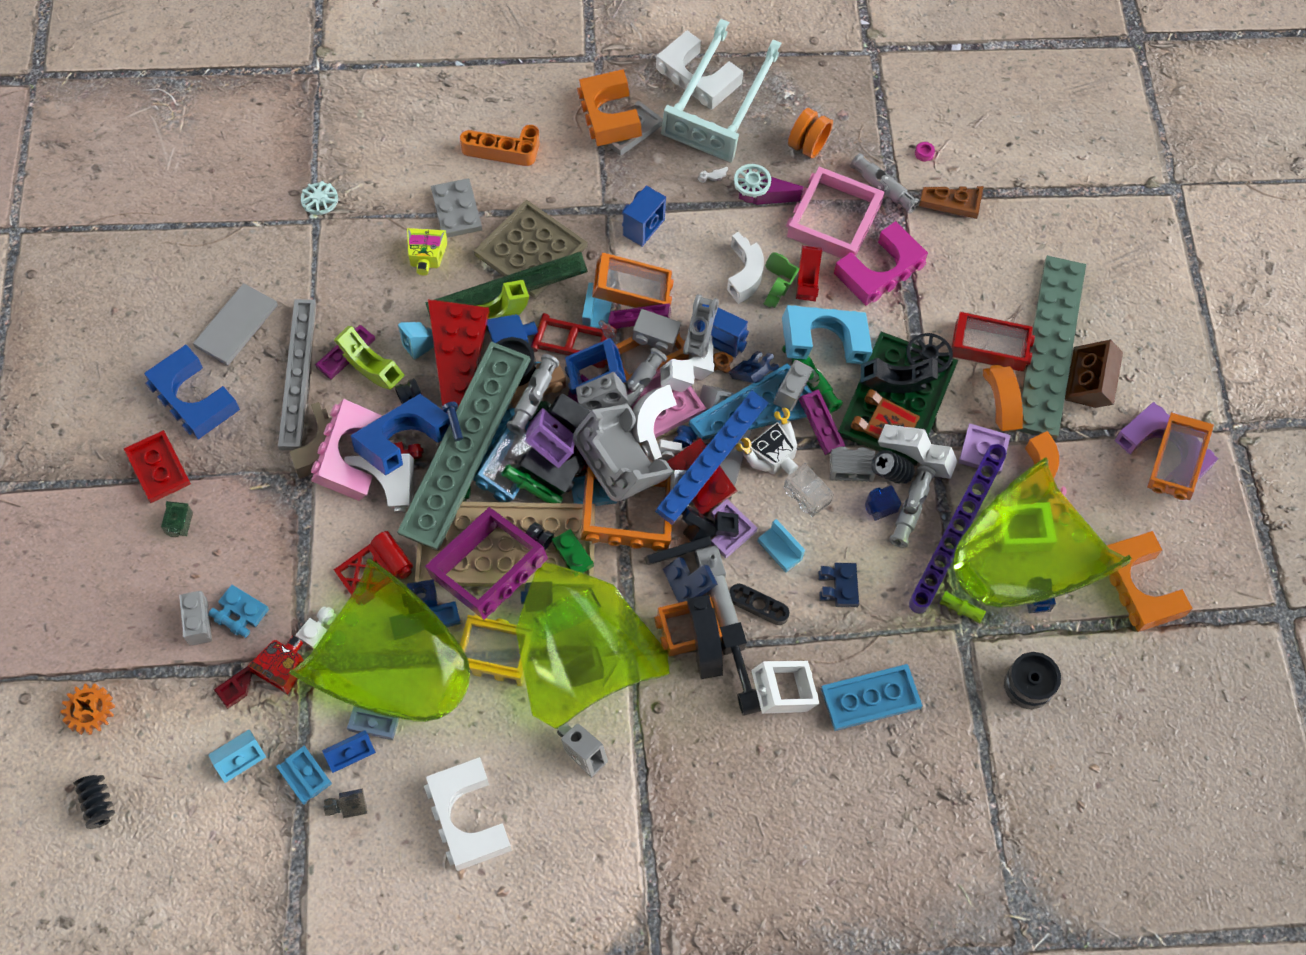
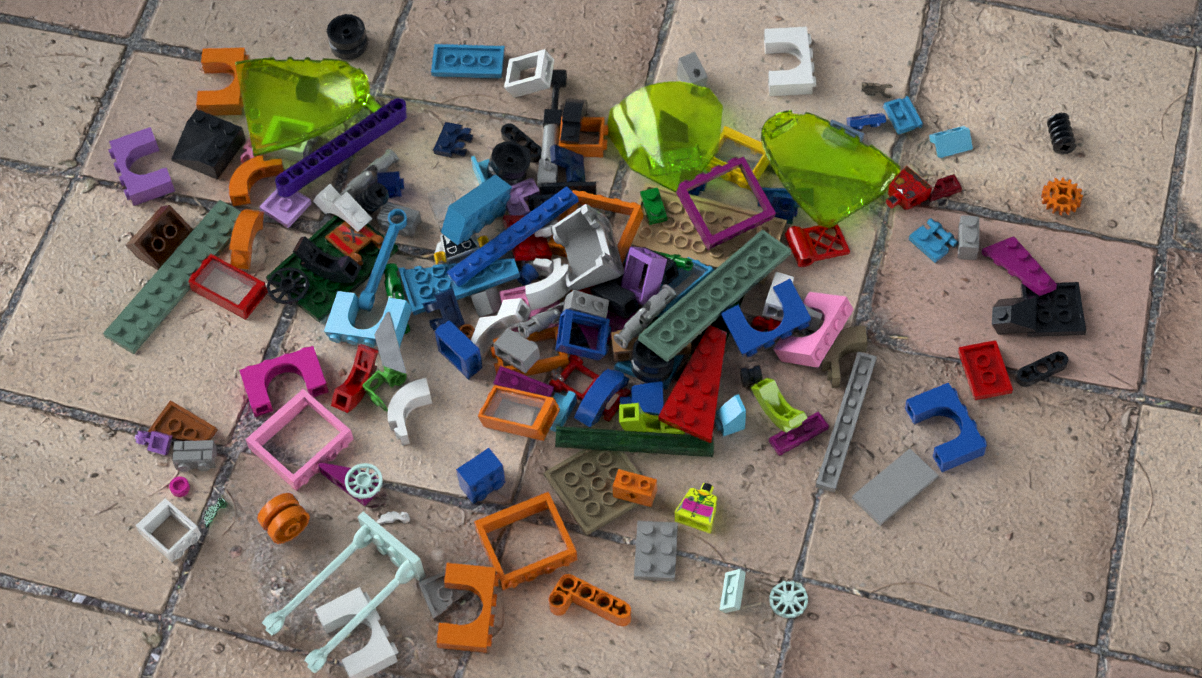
camera: 155 degrees left, 5 degrees down
(78, 493) = (1037, 376): none -> black beam
(87, 558) = (1058, 311): none -> black plate
(129, 532) = (1015, 315): none -> black slope
(133, 603) = (1021, 264): none -> magenta wing
(183, 516) = (974, 320): clear green brick -> none
(313, 631) = (876, 210): white plate -> none
(372, 186) = (732, 591): none -> light aqua plate
(451, 408) = (720, 316): dark blue piece -> none
(490, 238) = (634, 488): none -> orange brick
(539, 535) = (677, 219): black wheel -> none
(556, 316) = (599, 395): none -> blue arch
(598, 202) = (515, 514): none -> orange window
(704, 314) = (478, 332): light grey piece -> none
(726, 524) = (523, 191): black plate -> none
(746, 552) = (509, 162): none -> black wheel
(765, 473) = (476, 209): none -> dark azure brick
(788, 299) = (388, 345): none -> sticker
(793, 385) = (419, 279): light grey brick -> none
(821, 421) = (407, 257): magenta tile -> none
(844, 403) = (367, 297): none -> dark azure piece
(882, 139) = (211, 513): none -> clear green piece
(892, 188) = (236, 457): light grey piece -> none
(913, 95) = (156, 518): none -> white window
(926, 174) = (194, 455): none -> light grey brick
(968, 178) = (157, 441): none -> medium lavender plate
(1111, 495) = (208, 144): none -> black slope
(1180, 456) = (140, 142): window -> none

